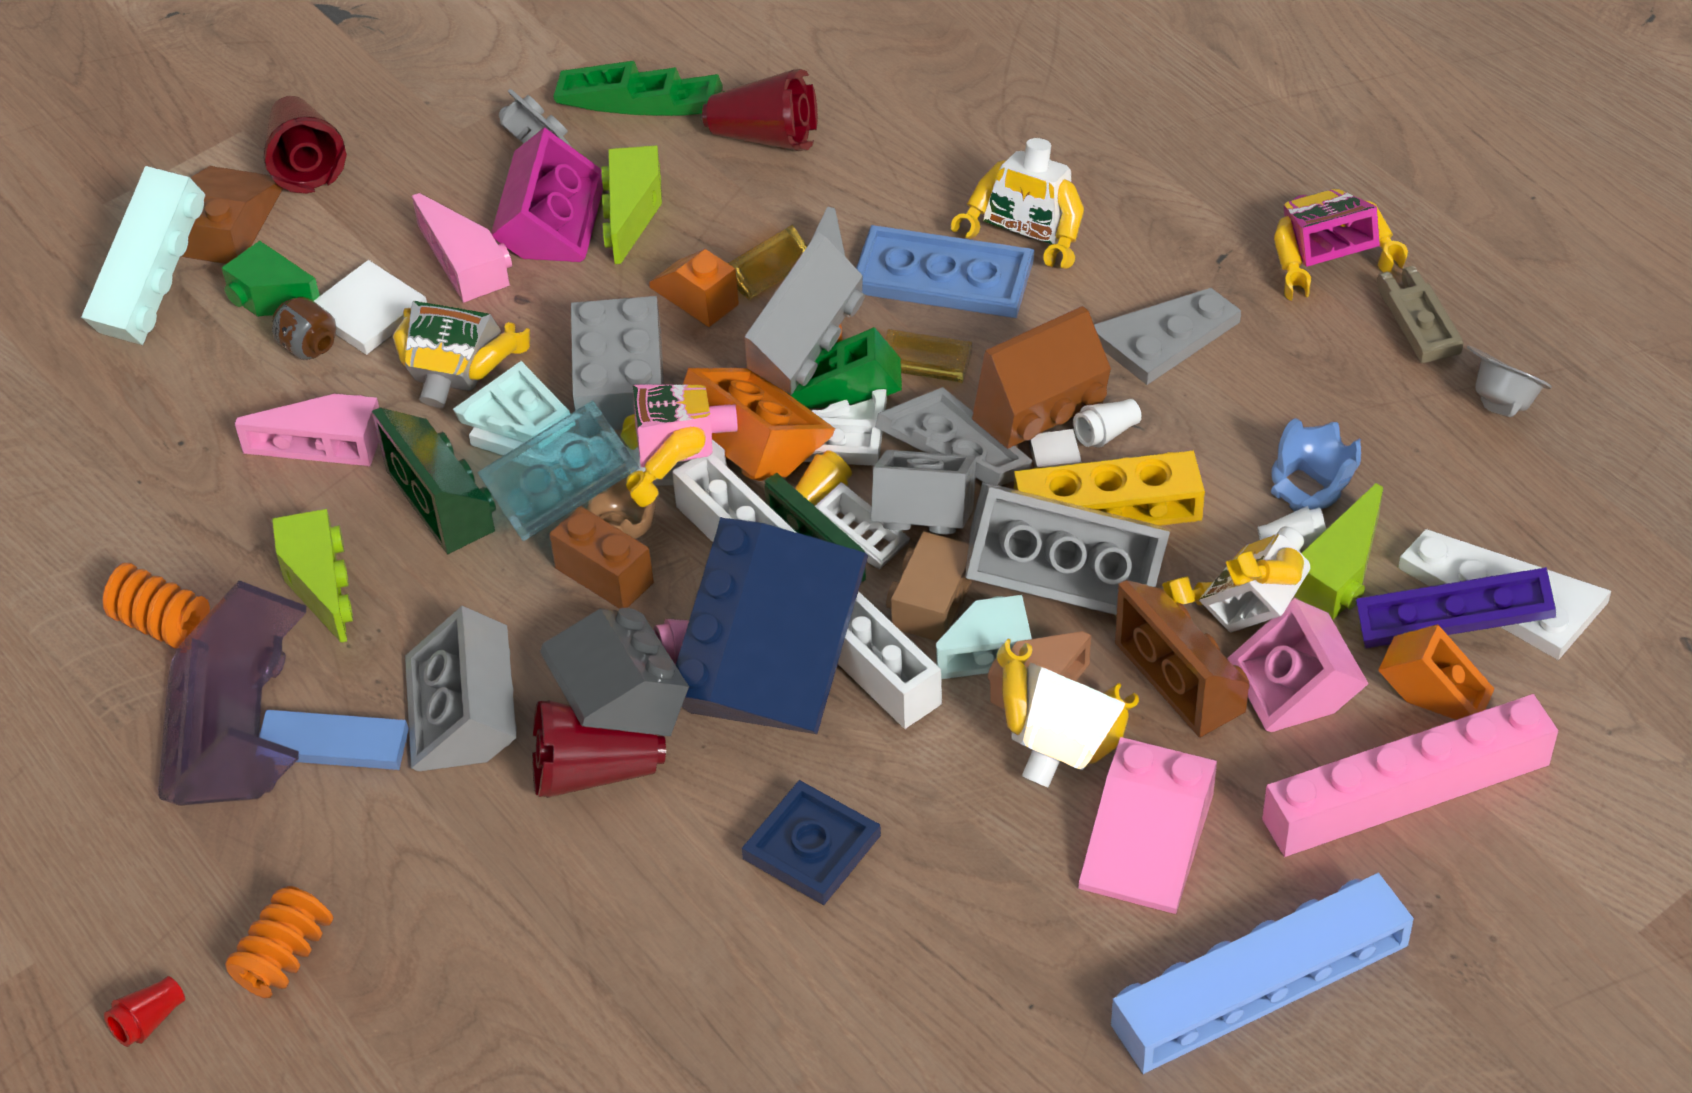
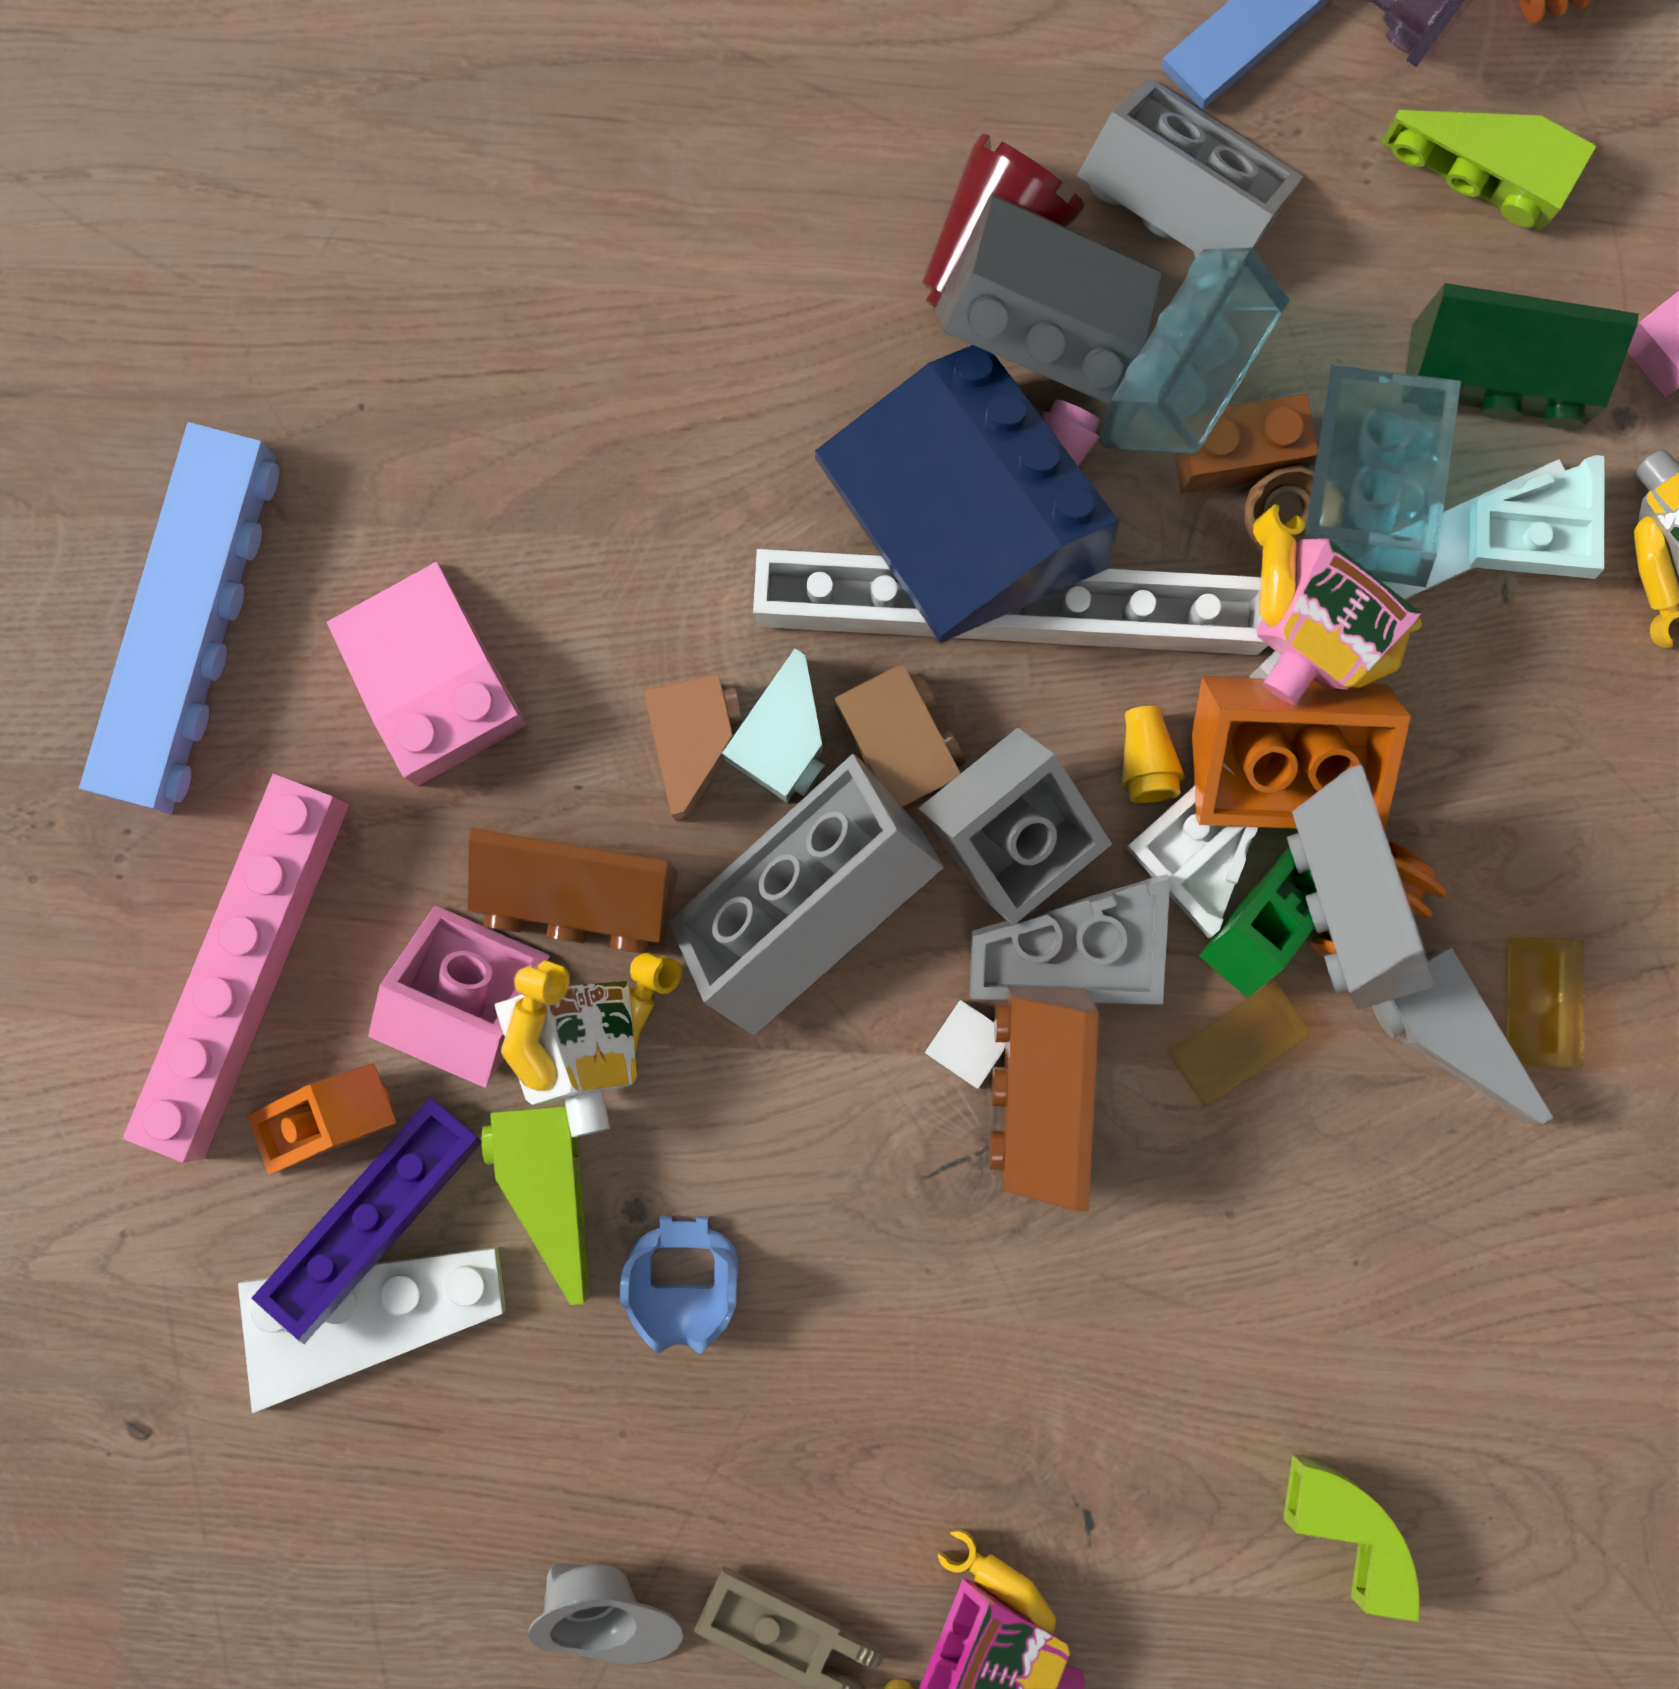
camera: 130 degrees right, 35 degrees up
(571, 584) = (1195, 354): none -> clear light blue slope
(612, 350) = (1522, 689): light grey brick -> none
(700, 286) = (1575, 882): orange slope -> none
(803, 515) = (1085, 689): dark green tile -> none
(811, 842) = (704, 355): dark blue plate -> none
(856, 509) = (1106, 728): white slope -> none
(944, 271) = (1354, 1184): medium blue tile -> none
(1029, 198) = (1355, 1369): torso -> none
(1058, 715) = (602, 690): torso -> none
(1103, 166) = (1334, 1507): none -> lime brick
(1103, 422) = (954, 1132): white cone -> none
(1143, 488) = (778, 1103): yellow brick -> none
(1166, 333) = (1027, 1336): light grey wing -> none
(1307, 522) = (624, 1175): white cone -> none

